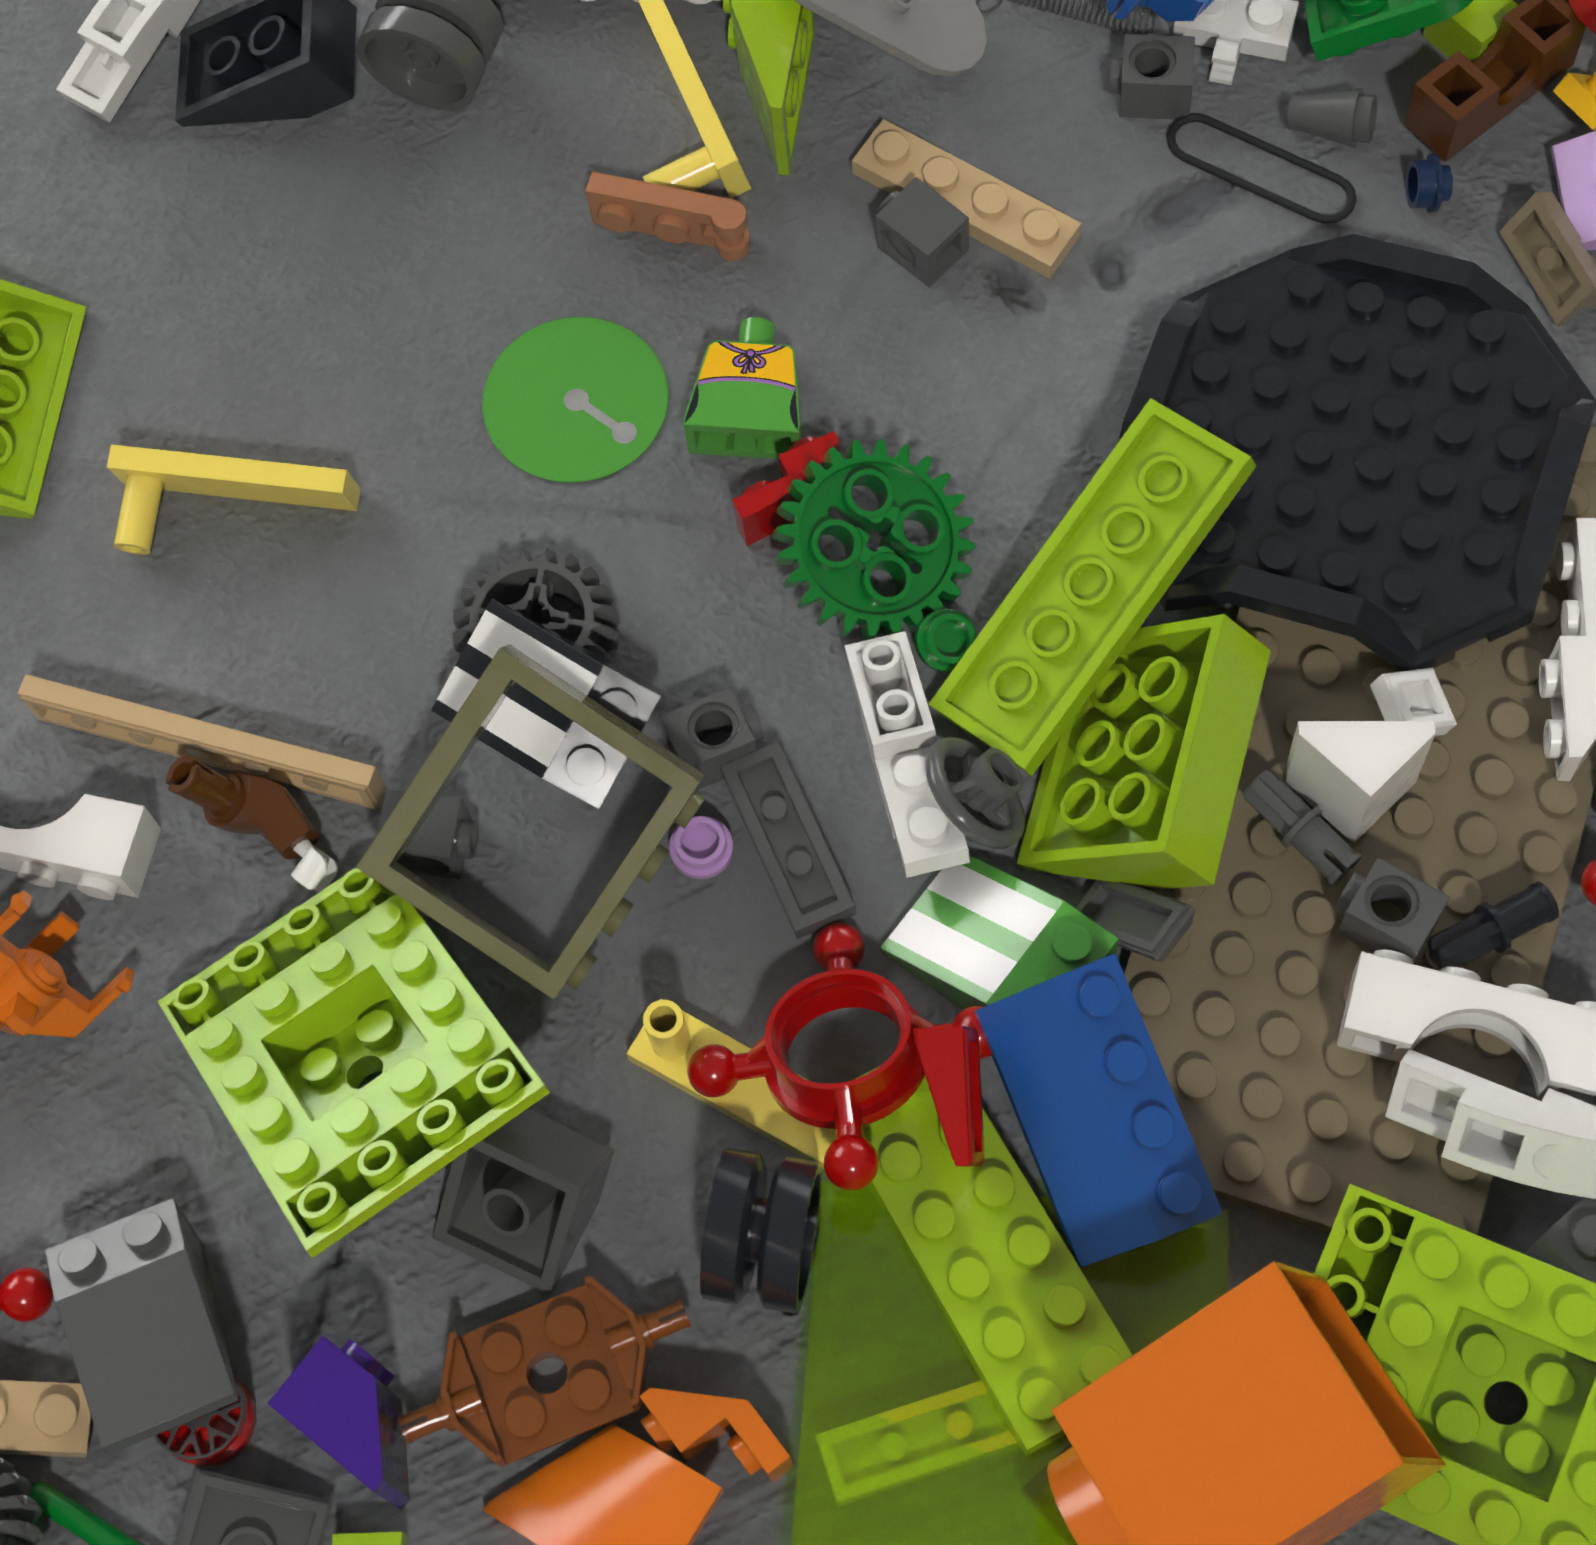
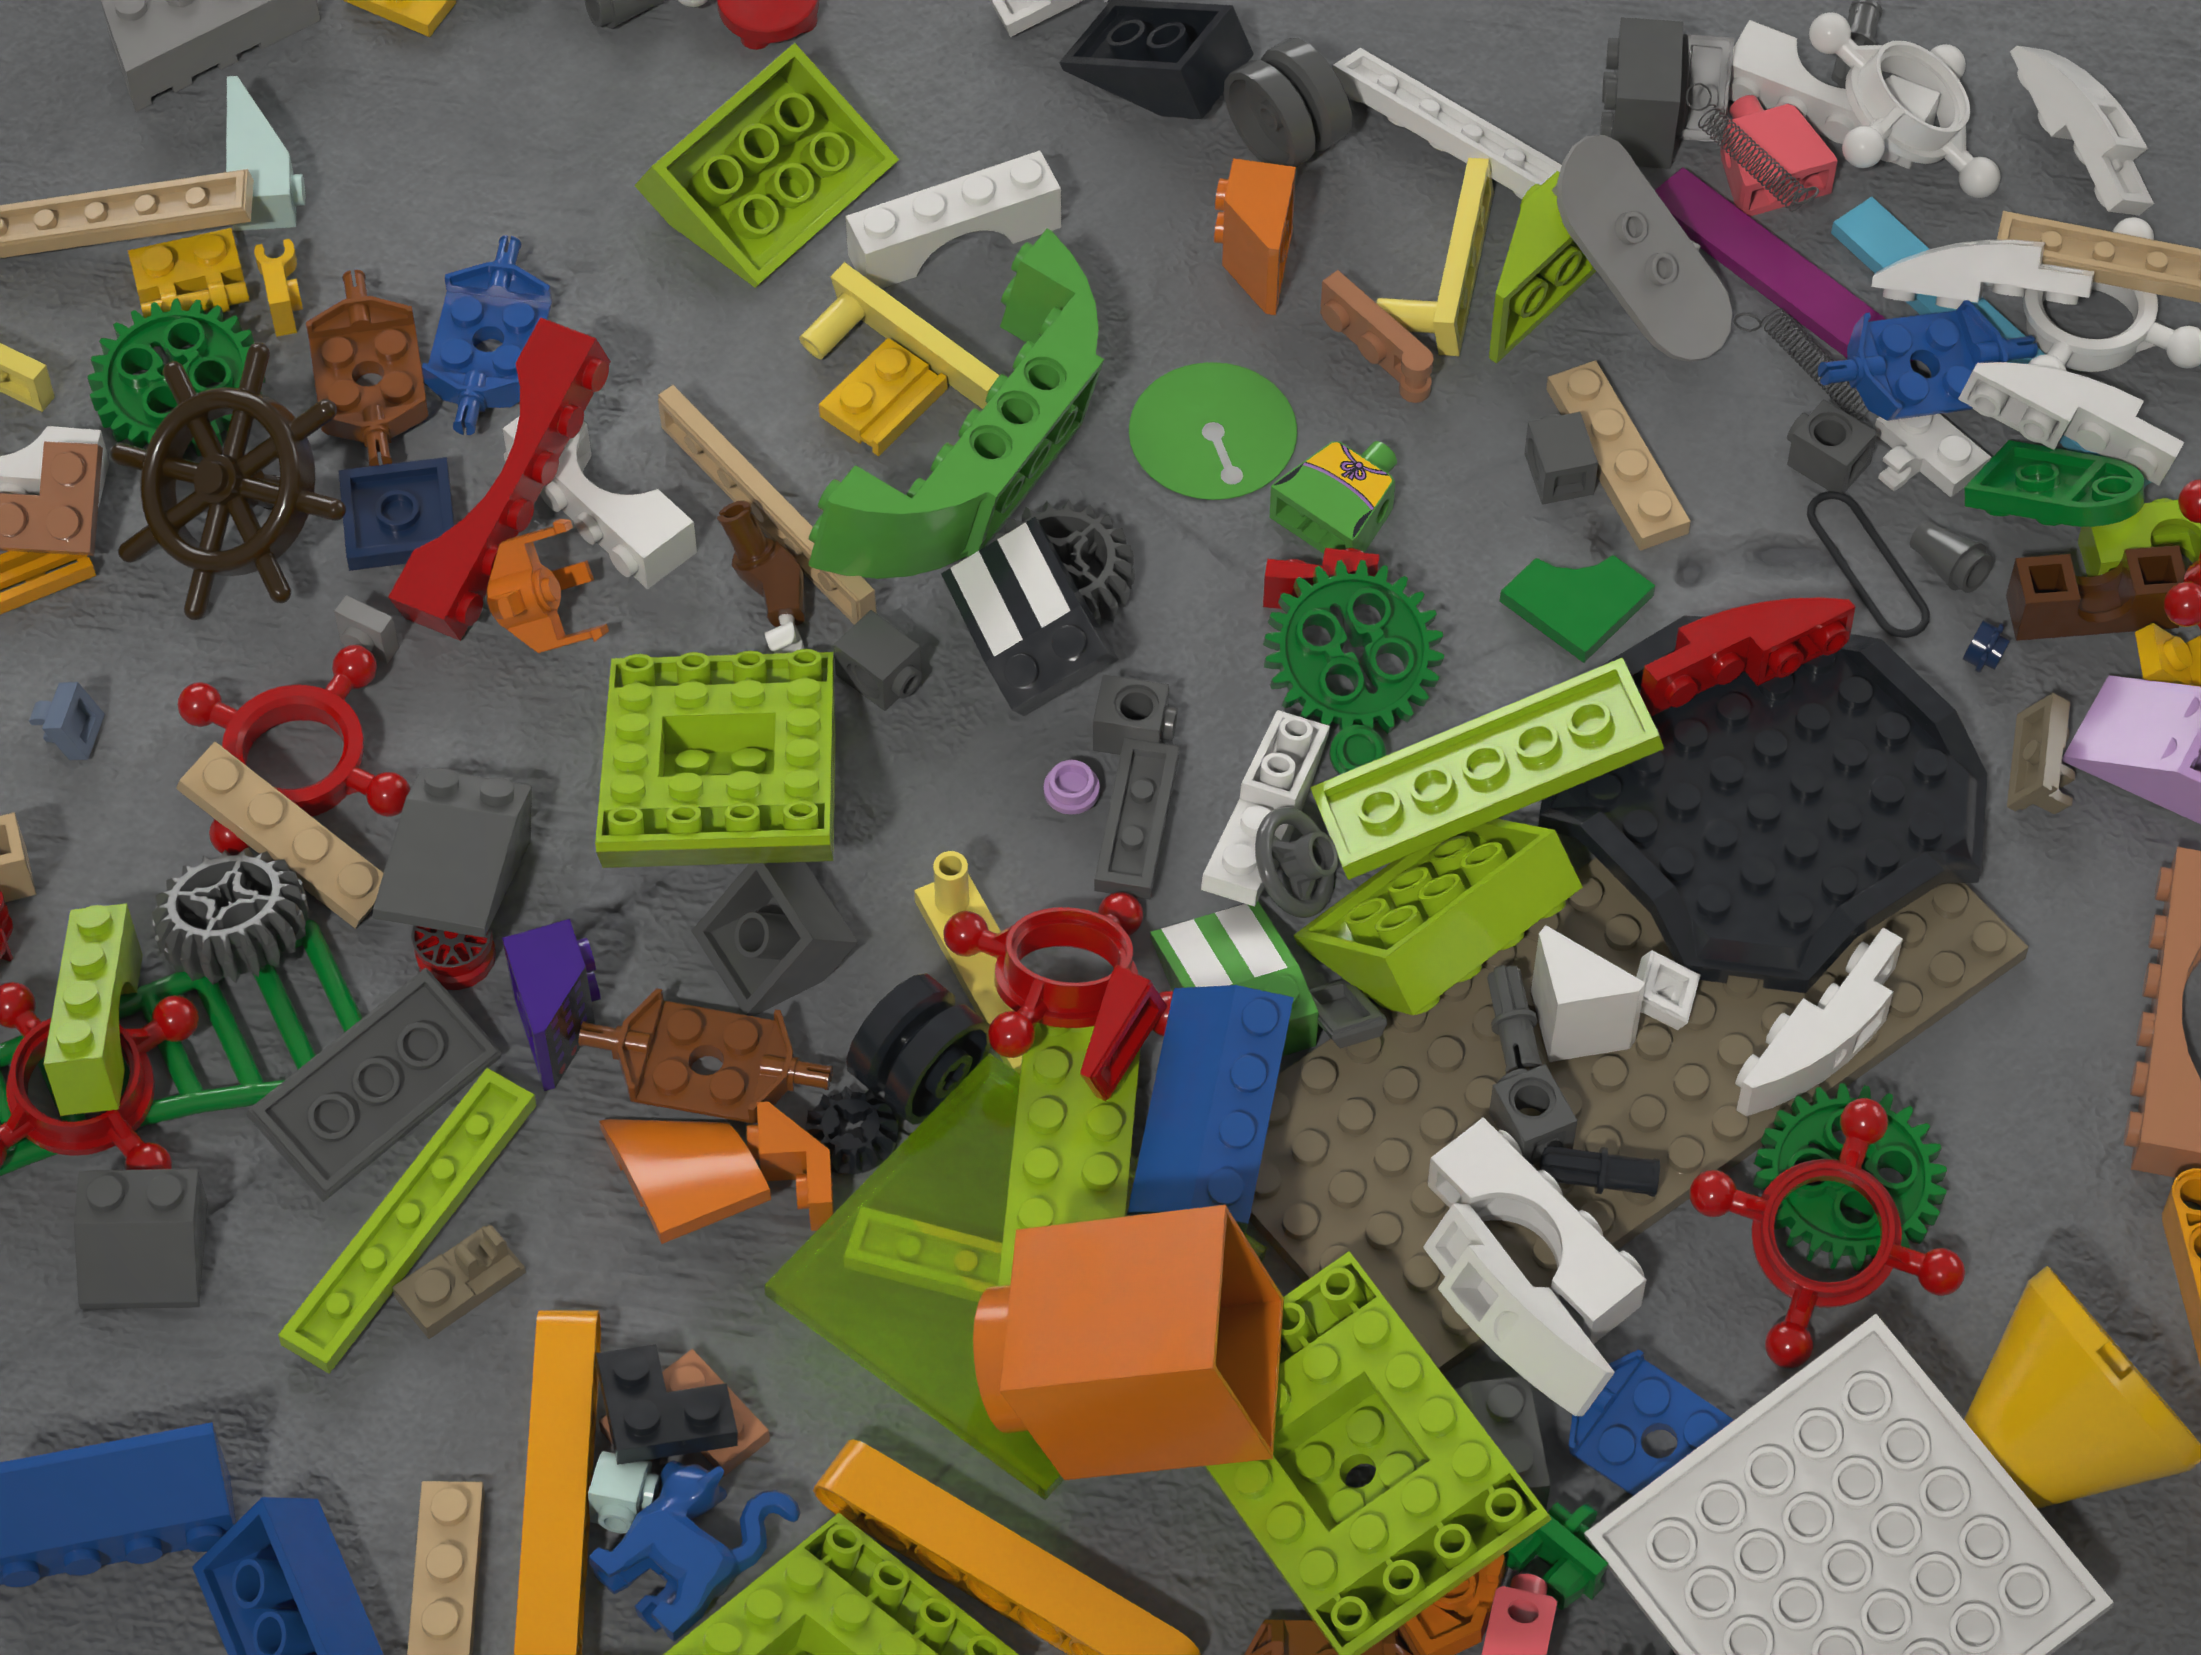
camera: 25 degrees right, 10 degrees down
(145, 382) = (899, 235): none -> white arch
(236, 556) = (883, 396): none -> yellow plate
(349, 707) = (1000, 451): none -> bright green slope
(486, 175) = (1256, 227): none -> orange slope
(643, 860) = (918, 604): olive window -> none
(756, 1379) = (849, 1153): none -> black gear
(1037, 366) = (1577, 605): none -> green tile
(1248, 310) = (1755, 638): none -> red slope

